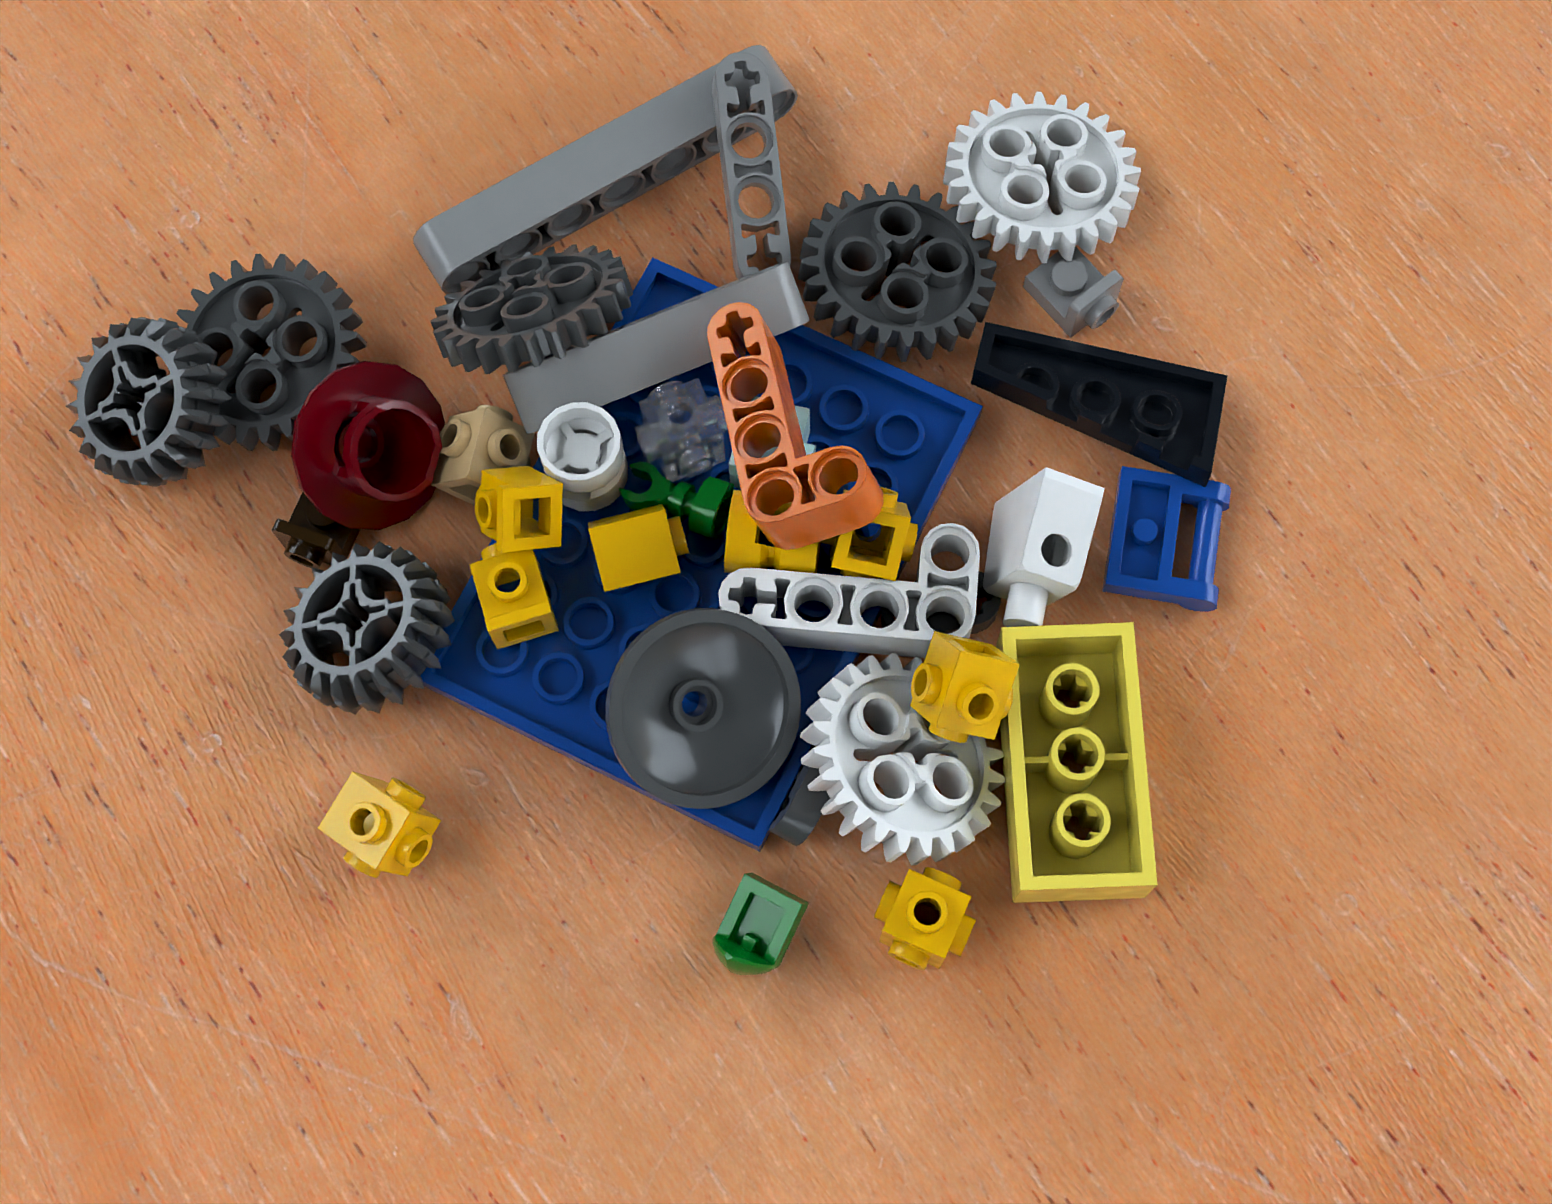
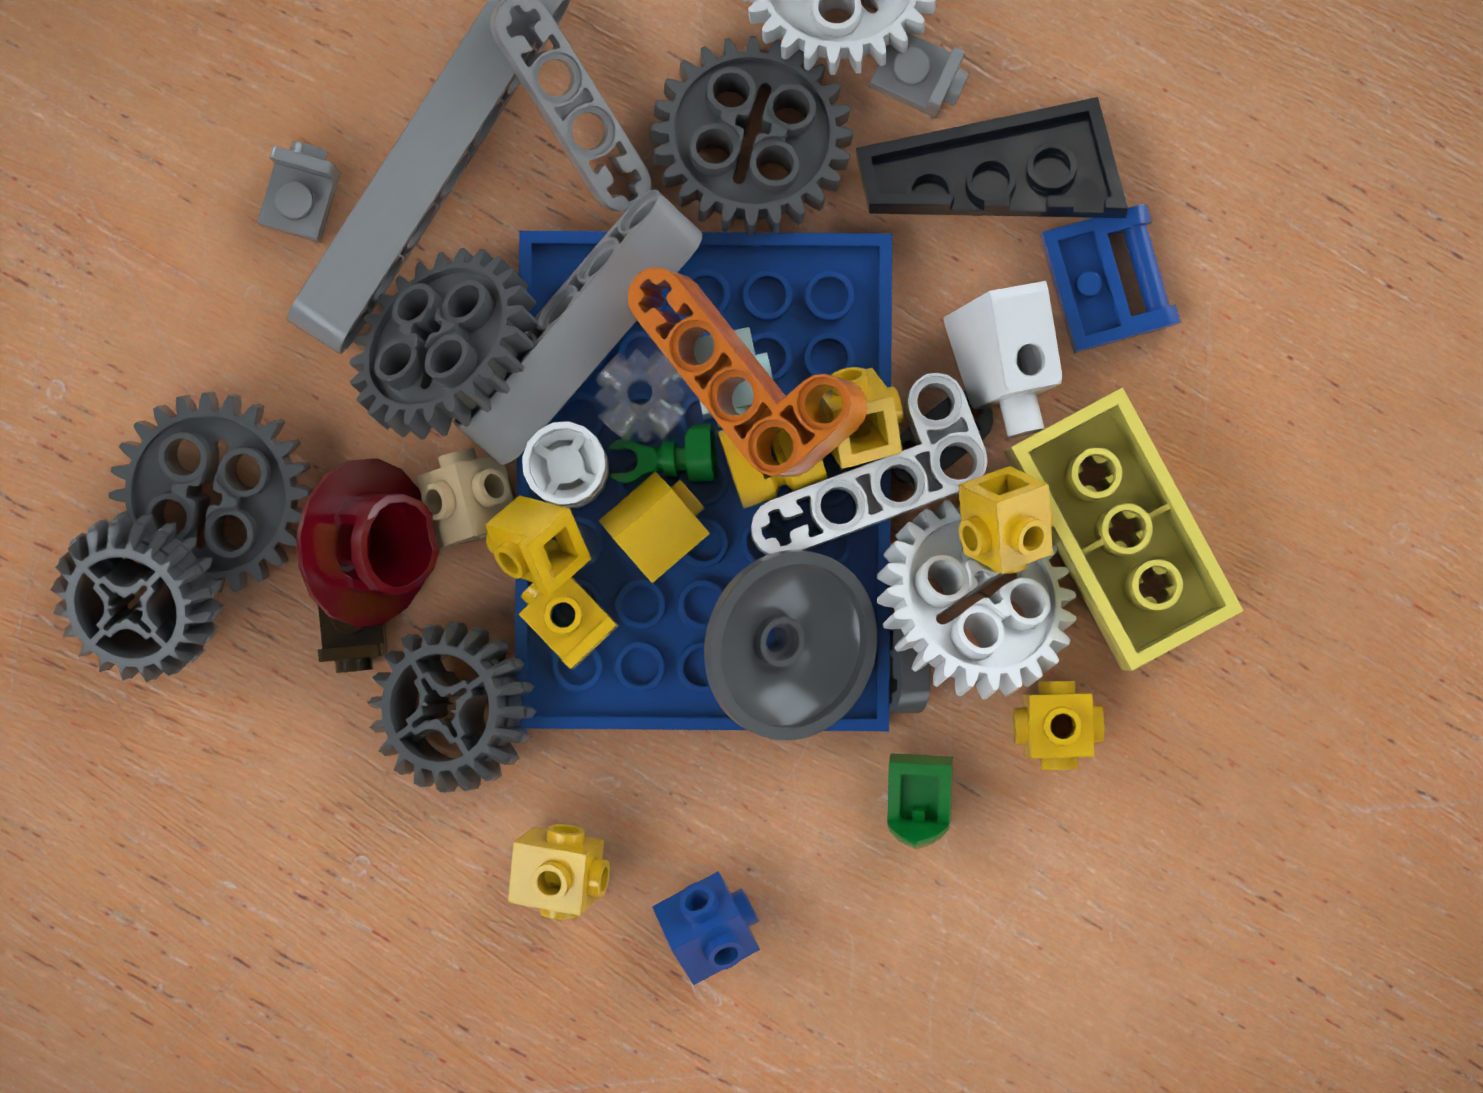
camera: 30 degrees left, 15 degrees up
(485, 147) = (299, 191): none -> light grey bracket
(491, 948) = (708, 927): none -> blue brick

